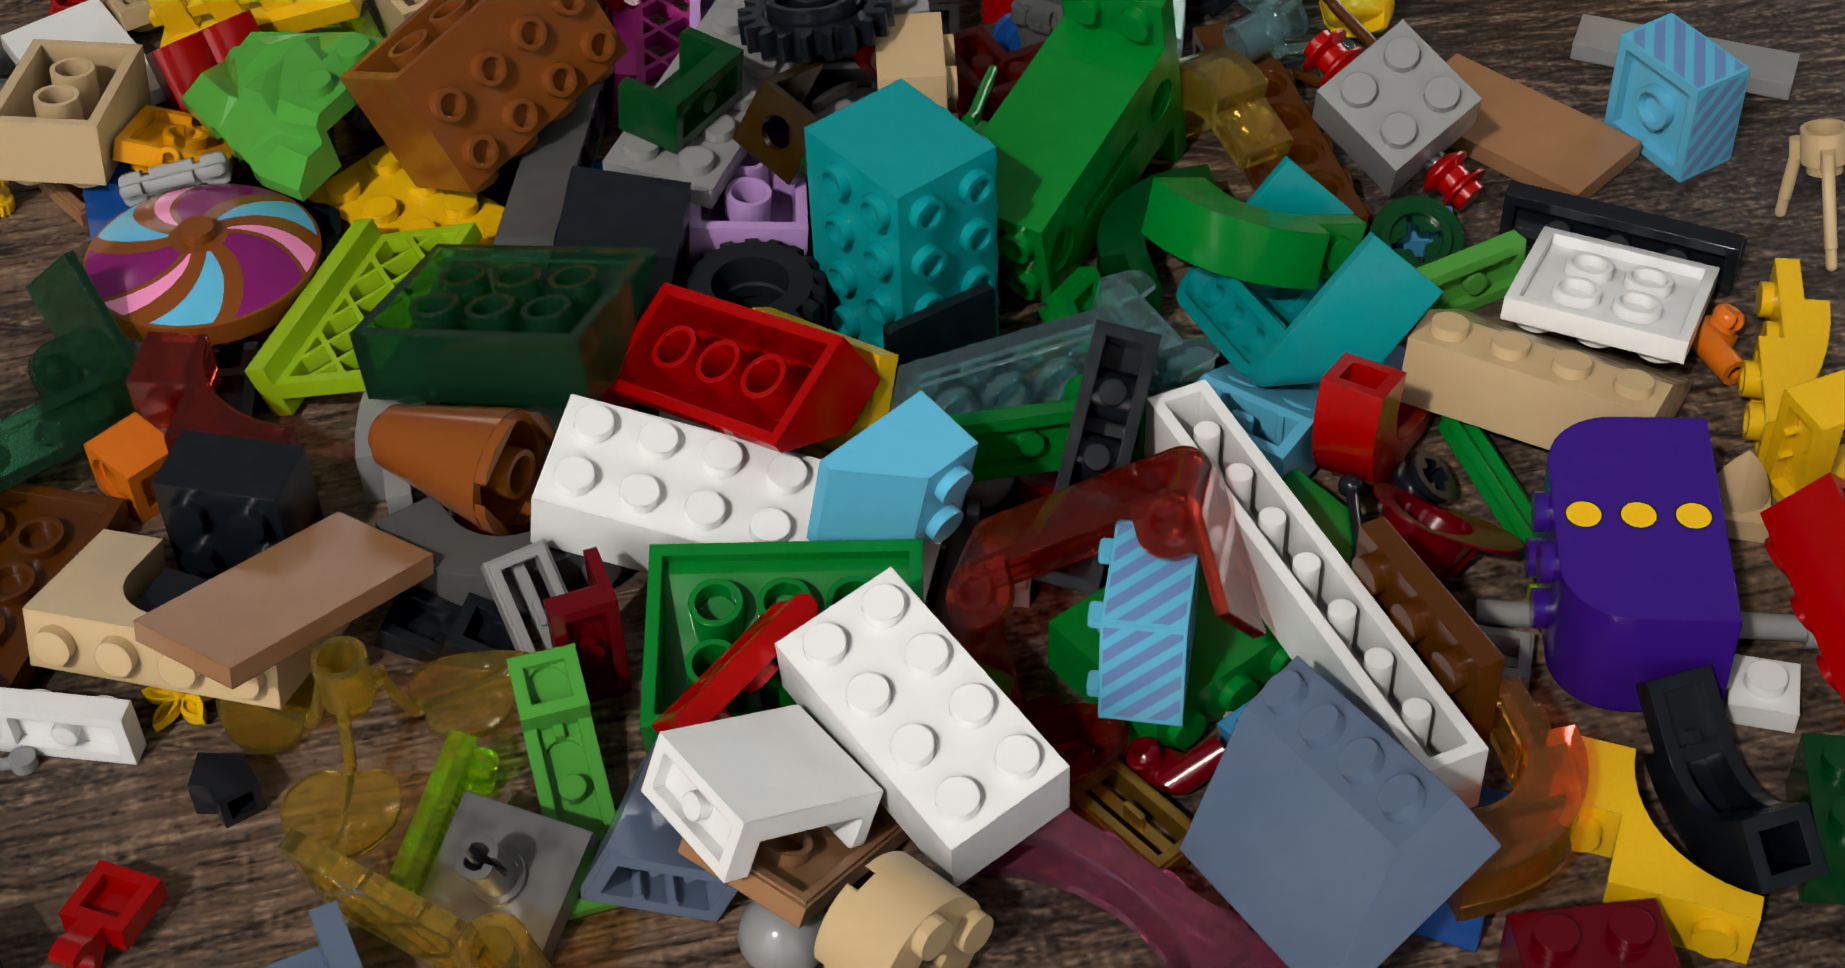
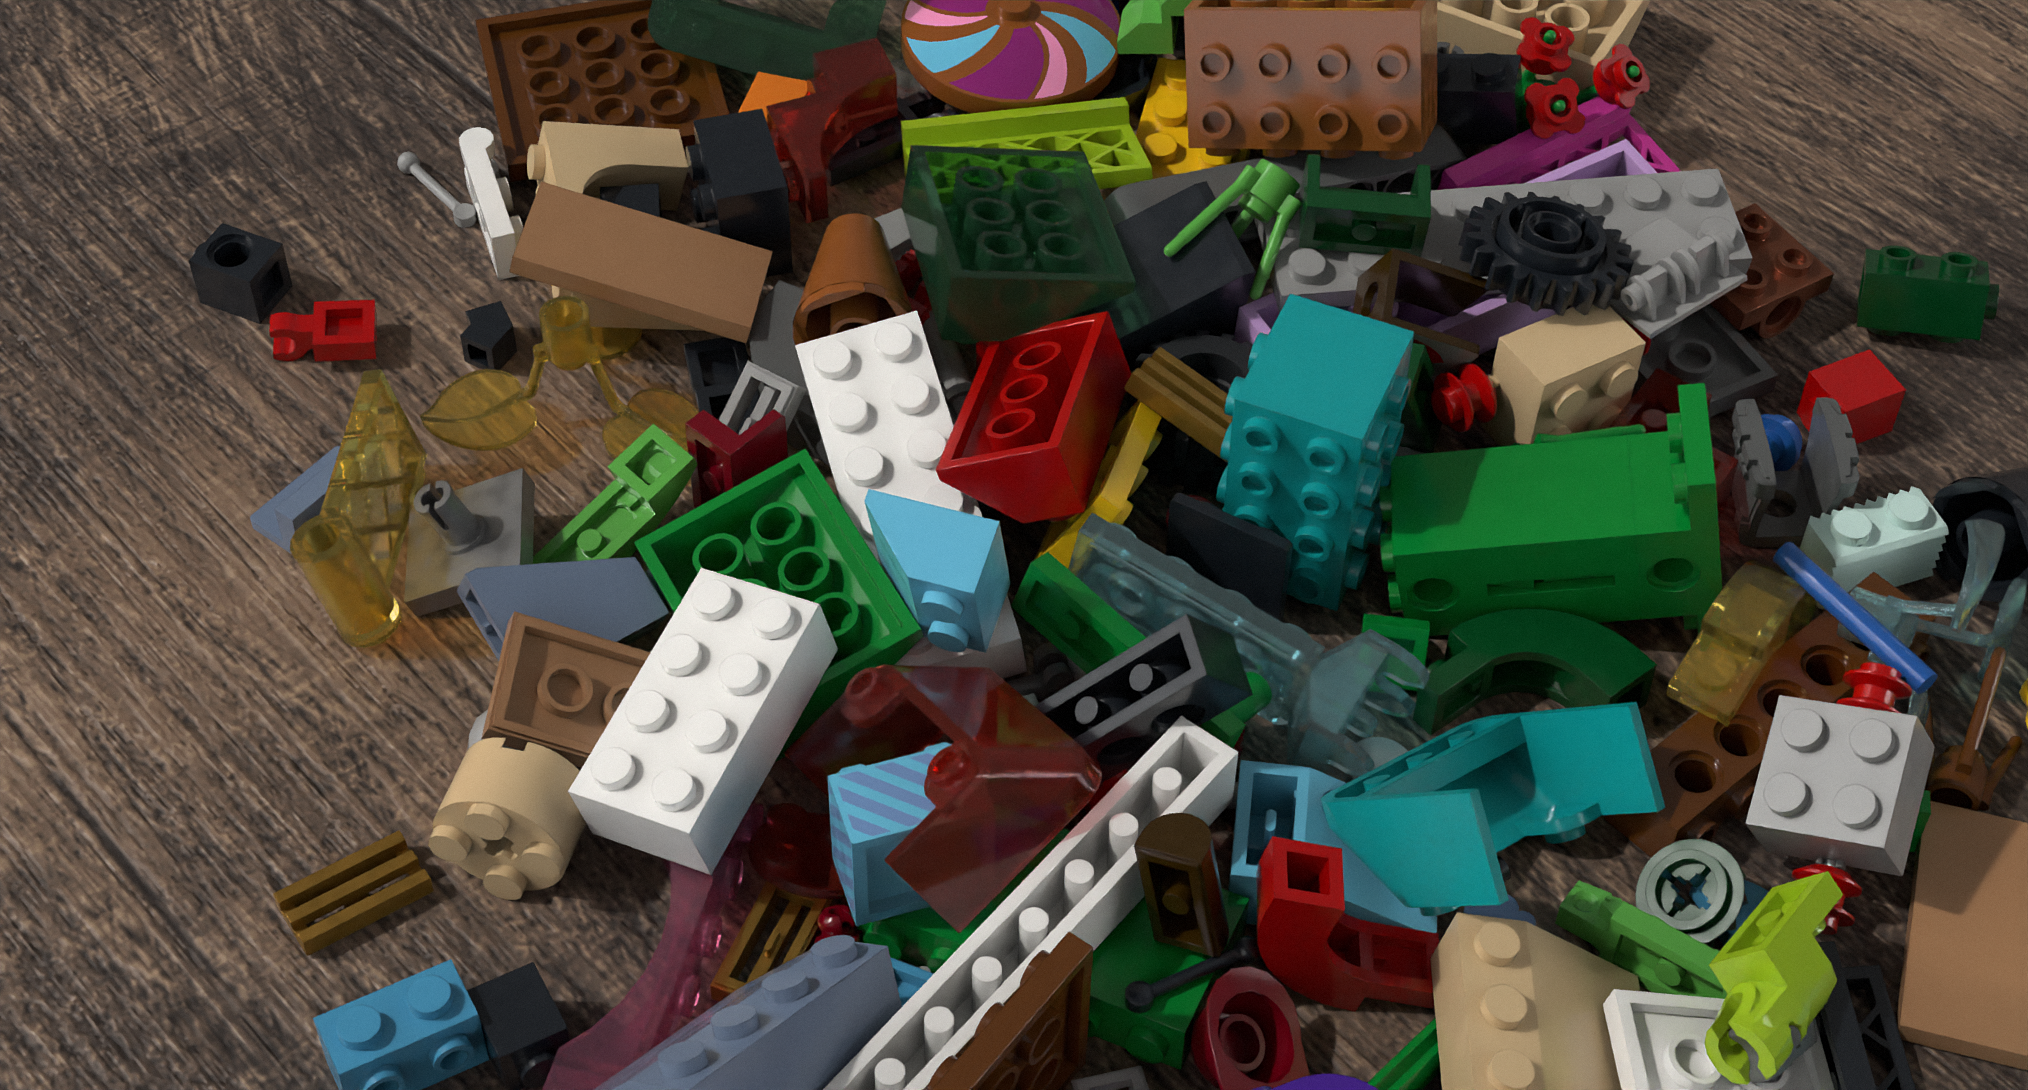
camera: 60 degrees right, 5 degrees up
(458, 769) = (547, 460): clear neon green hinge -> none
(616, 144) = (1266, 193): none -> bright green plant
(741, 667) = (647, 565): red hinge -> none
(757, 781) = (574, 630): white panel -> none
(789, 285) = (1182, 398): none -> pearl gold tile
(1246, 241) = (1514, 740): green arch -> none
(1256, 32) = (1854, 617): none -> blue bar
(1313, 458) = (1182, 884): none -> dark brown brick
(1426, 477) = (1353, 1021): black bush -> none
(1541, 211) = (1773, 982): none -> lime plate

